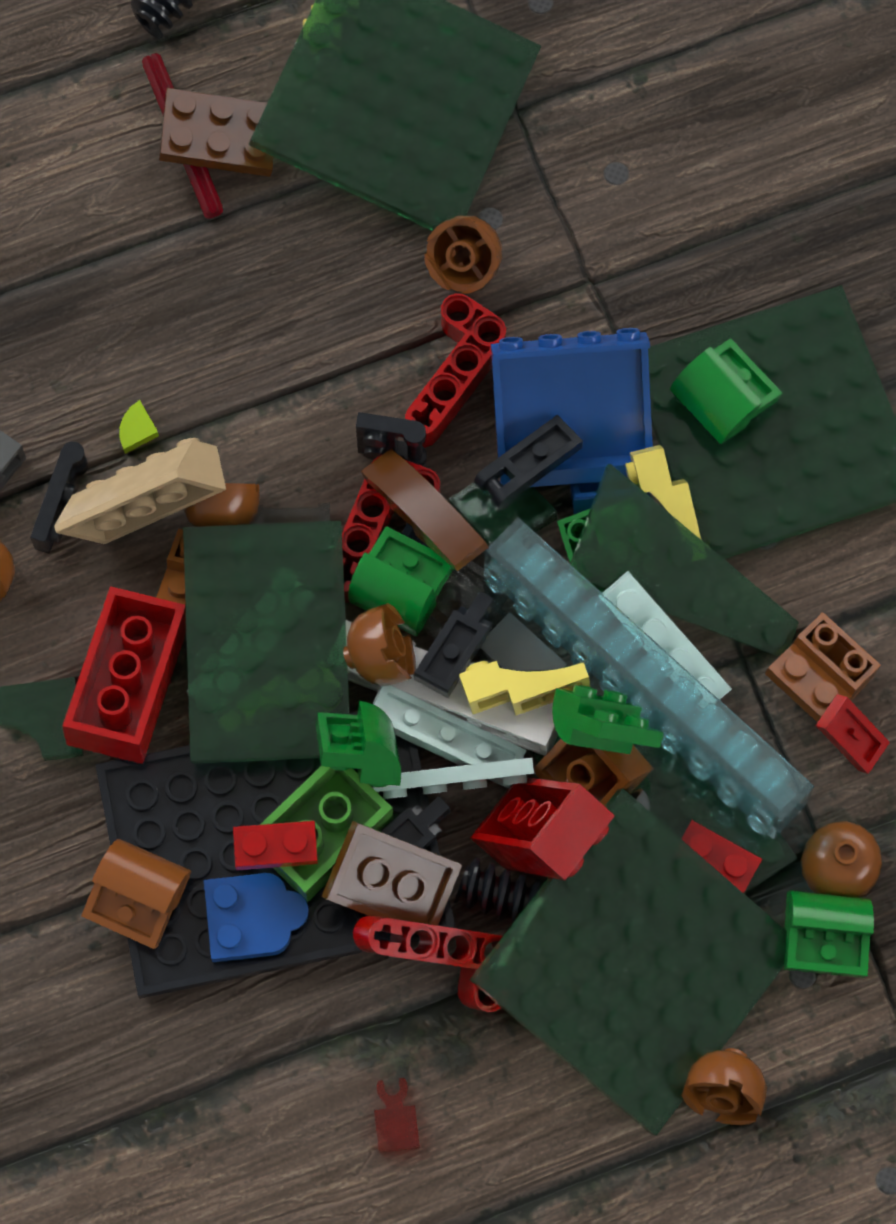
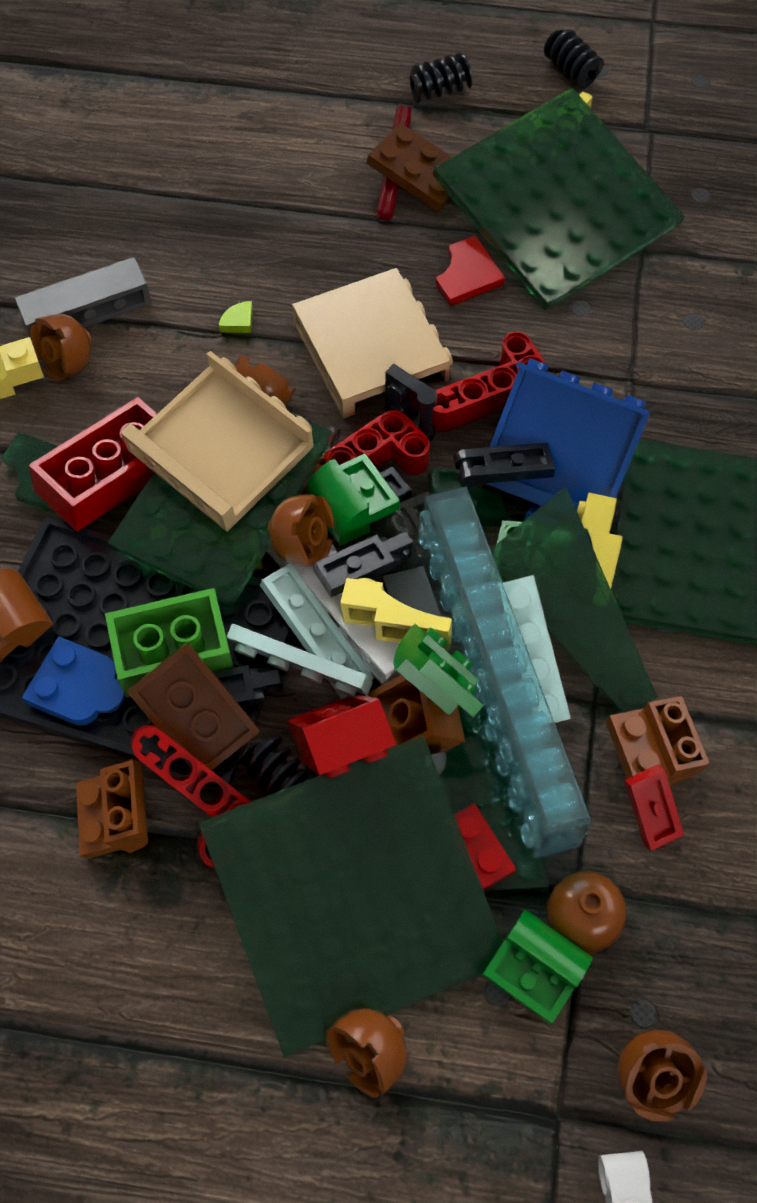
camera: 30 degrees right, 10 degrees down
(70, 464) = (151, 331): black plate -> none
(143, 493) = (182, 349): tan slope -> none
(242, 595) = (222, 442): none -> tan panel
(275, 845) = (117, 630): red plate -> none
(297, 381) = (363, 331): none -> tan panel
(350, 238) = (469, 273): none -> red tile
(360, 743) = (241, 593): green brick -> none
(365, 1014) = (112, 811): none -> dark orange brick
(396, 1124) = (80, 916): clear red plate -> none
(424, 509) = (400, 453): reddish brown slope -> none
(463, 254) = (544, 309): dark orange cylinder -> none
(724, 390) = (692, 490): green brick -> none

